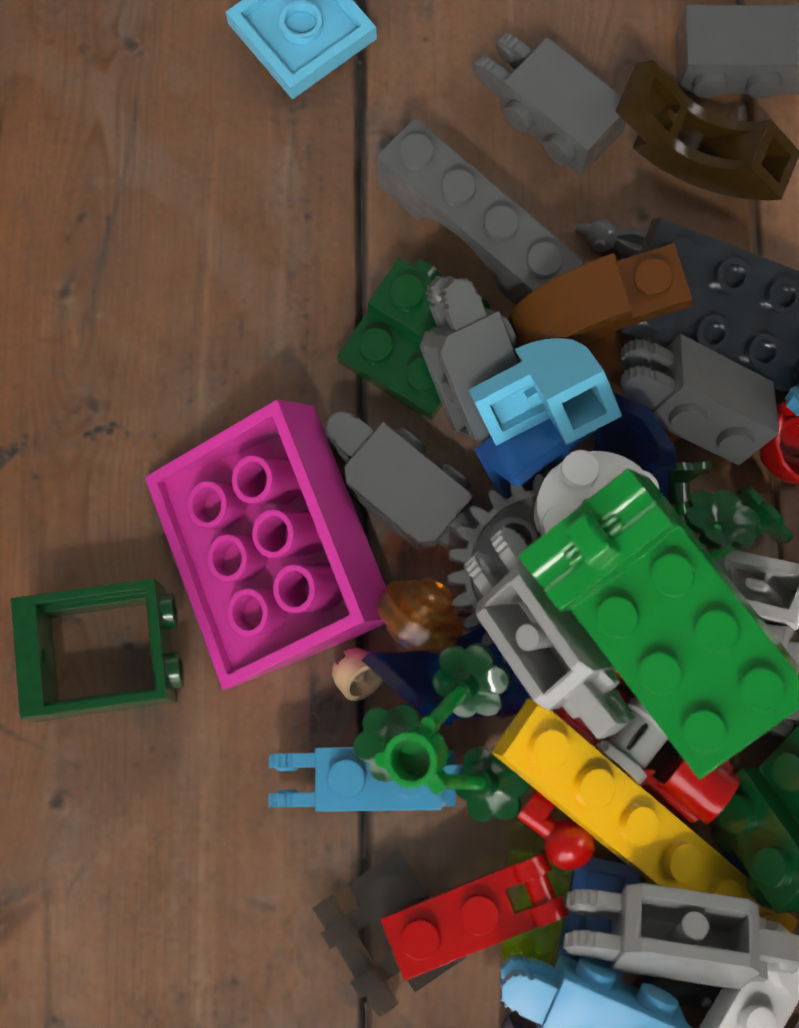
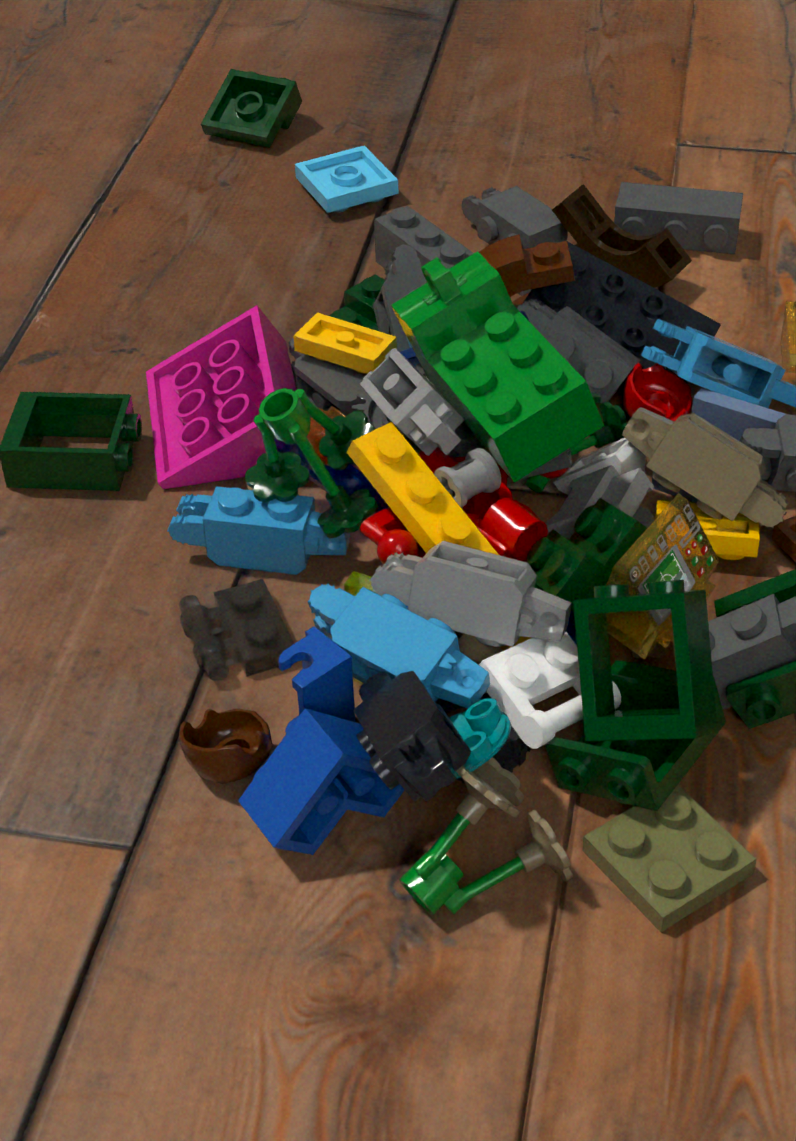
camera: 10 degrees right, 35 degrees down
(408, 449) = (343, 343): none -> yellow plate
(472, 916) = (283, 603): red plate -> none

